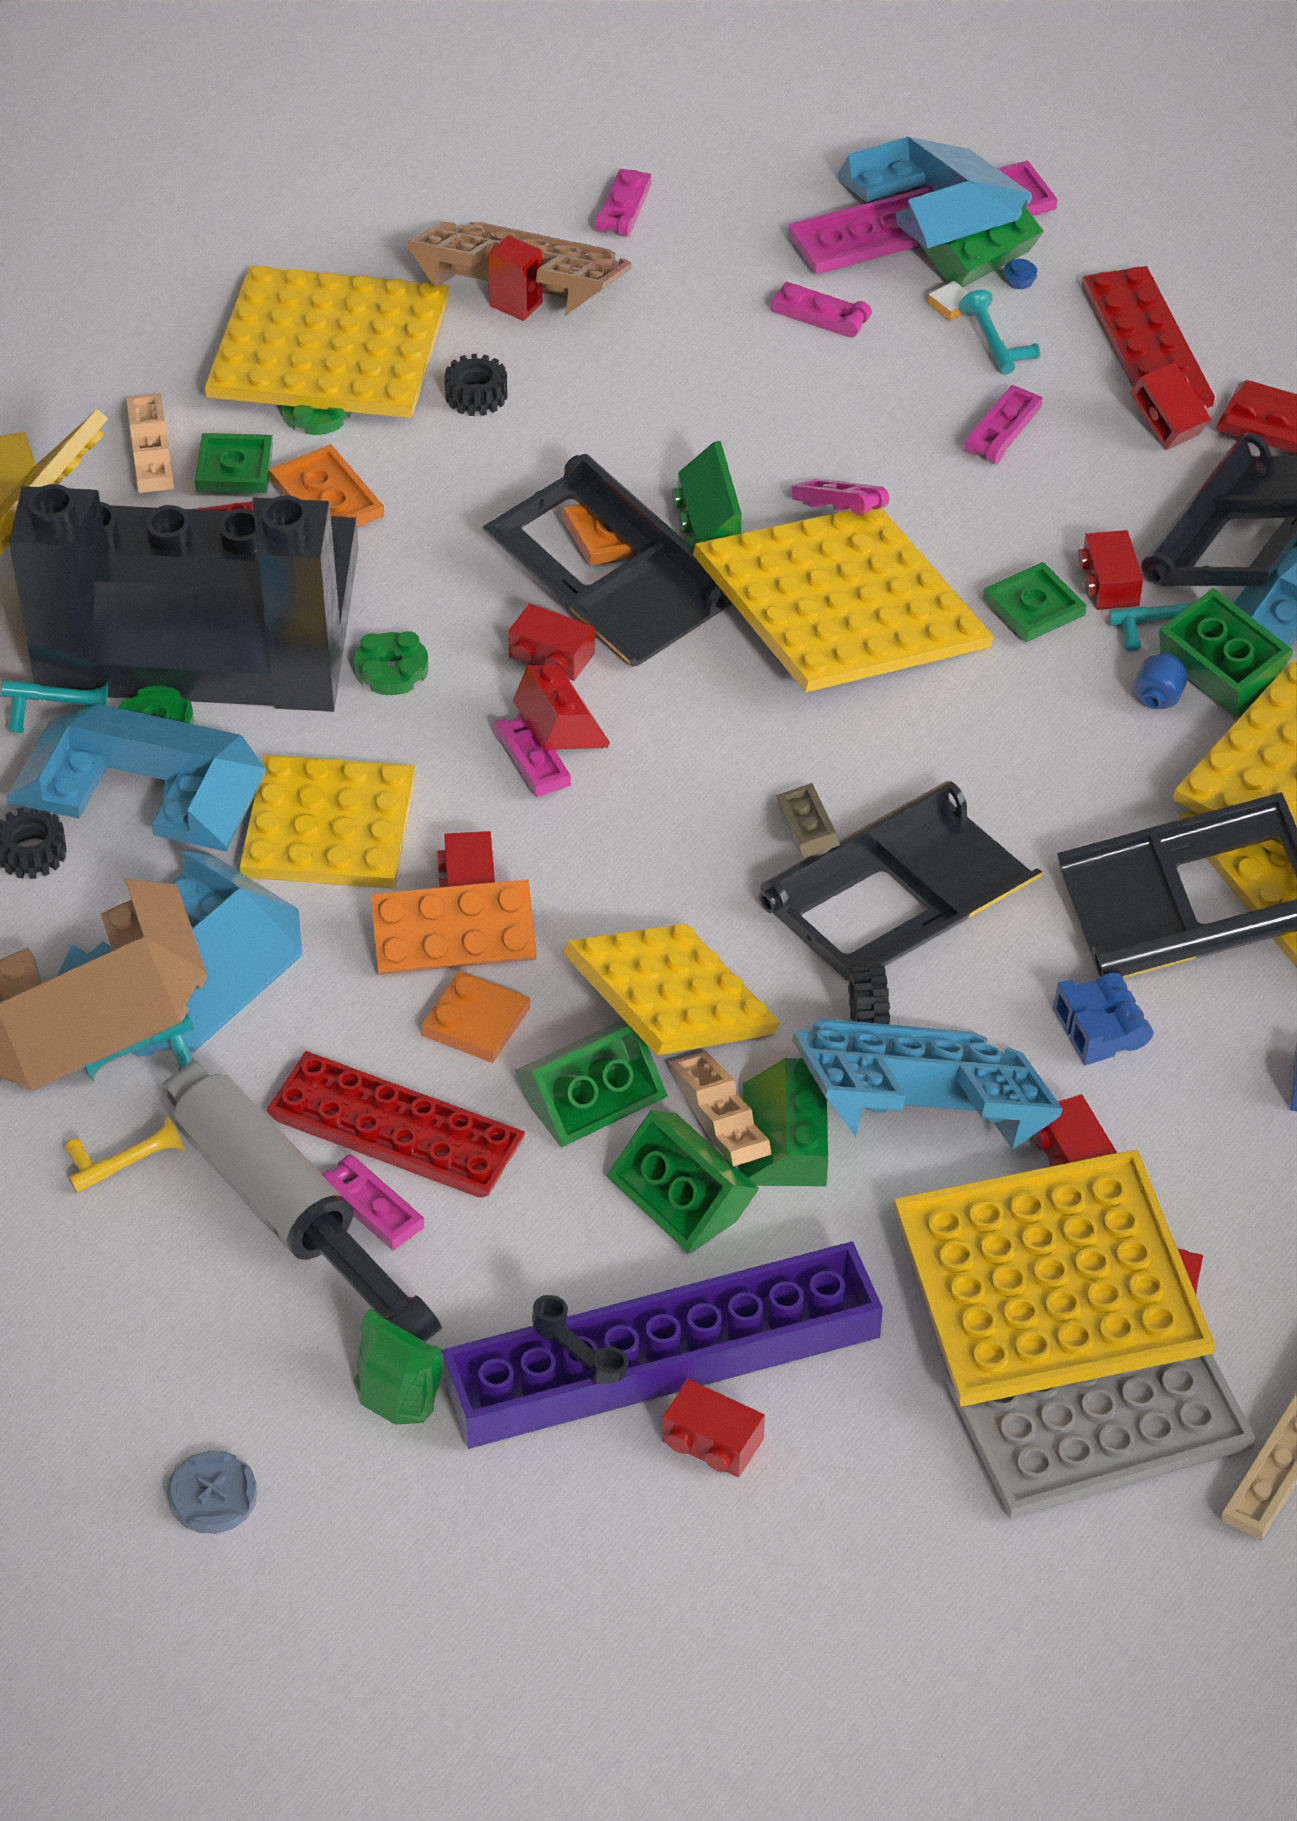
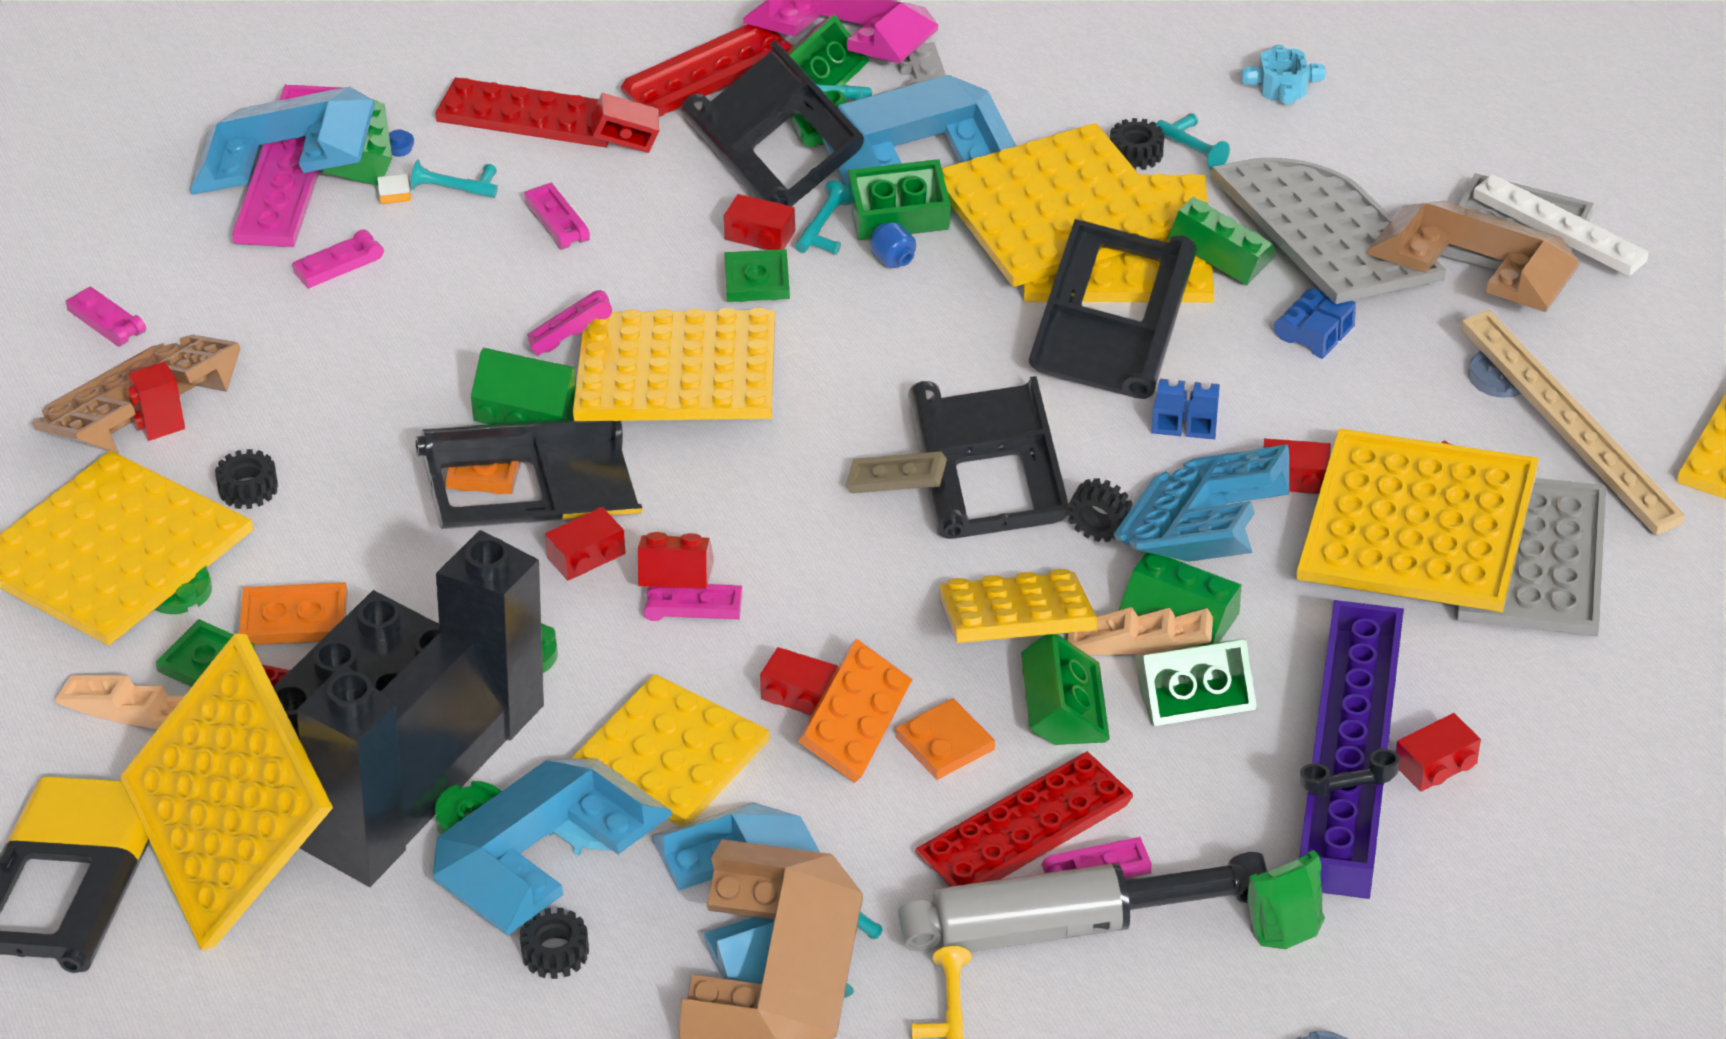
camera: 60 degrees left, 5 degrees down
(29, 691) = (423, 839): teal piece -> none

